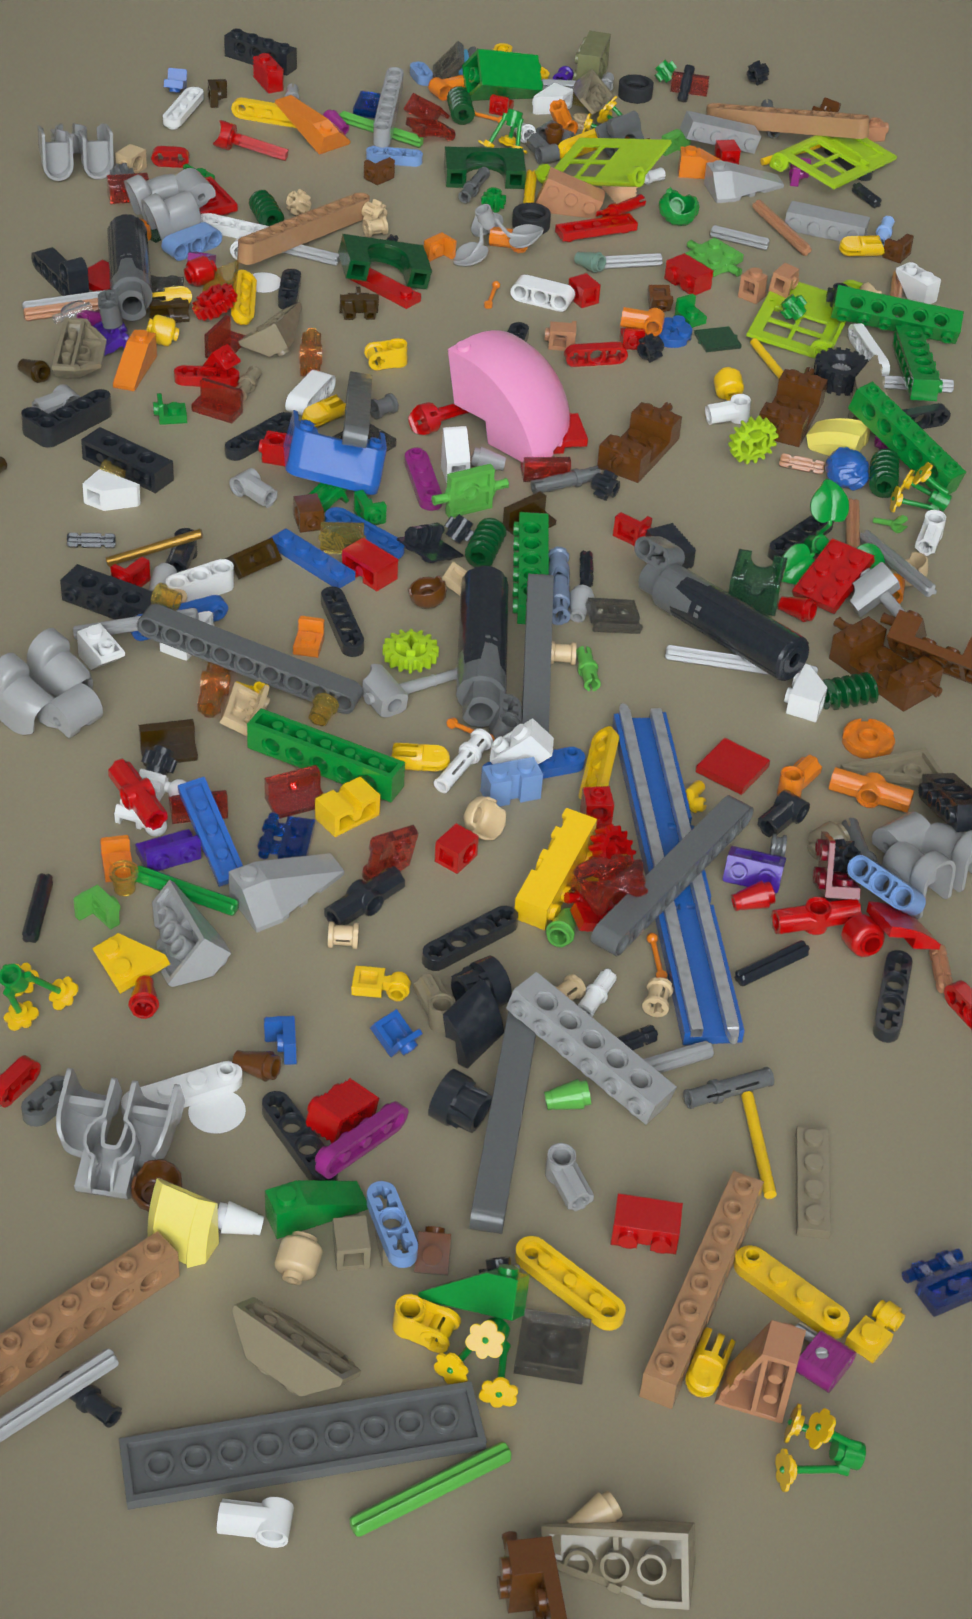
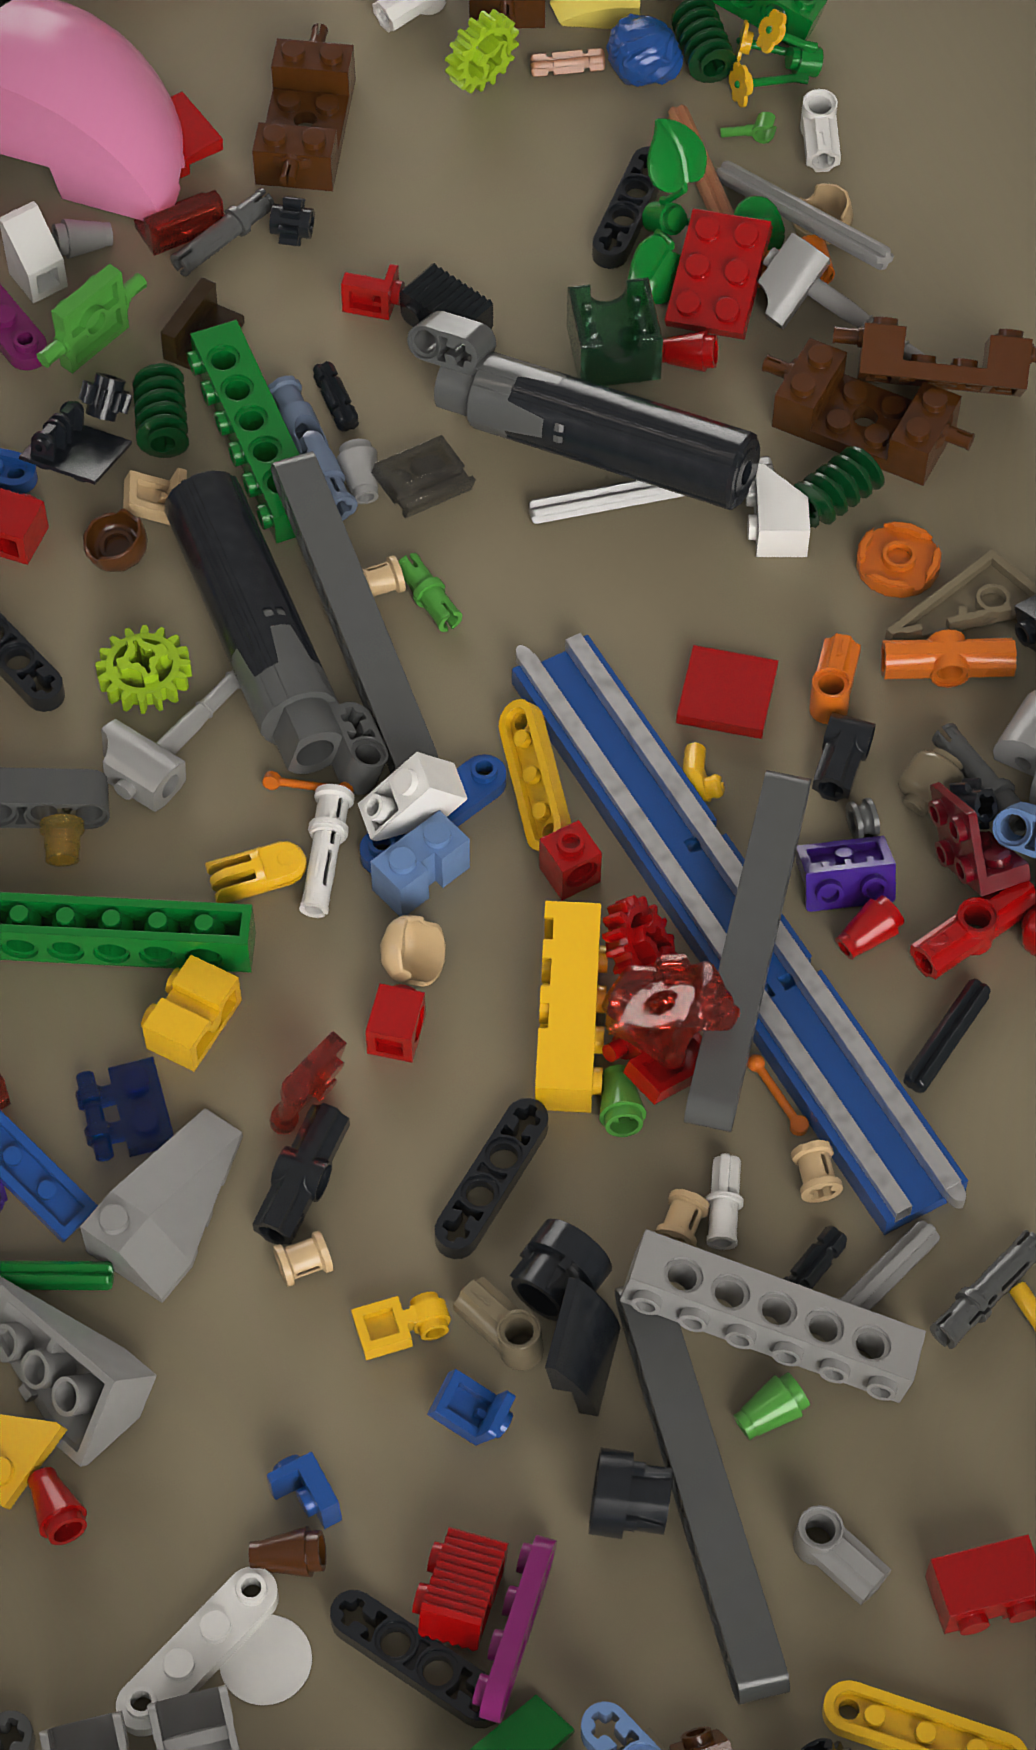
camera: 20 degrees left, 15 degrees up
(293, 791) = (96, 1018): clear red panel -> none

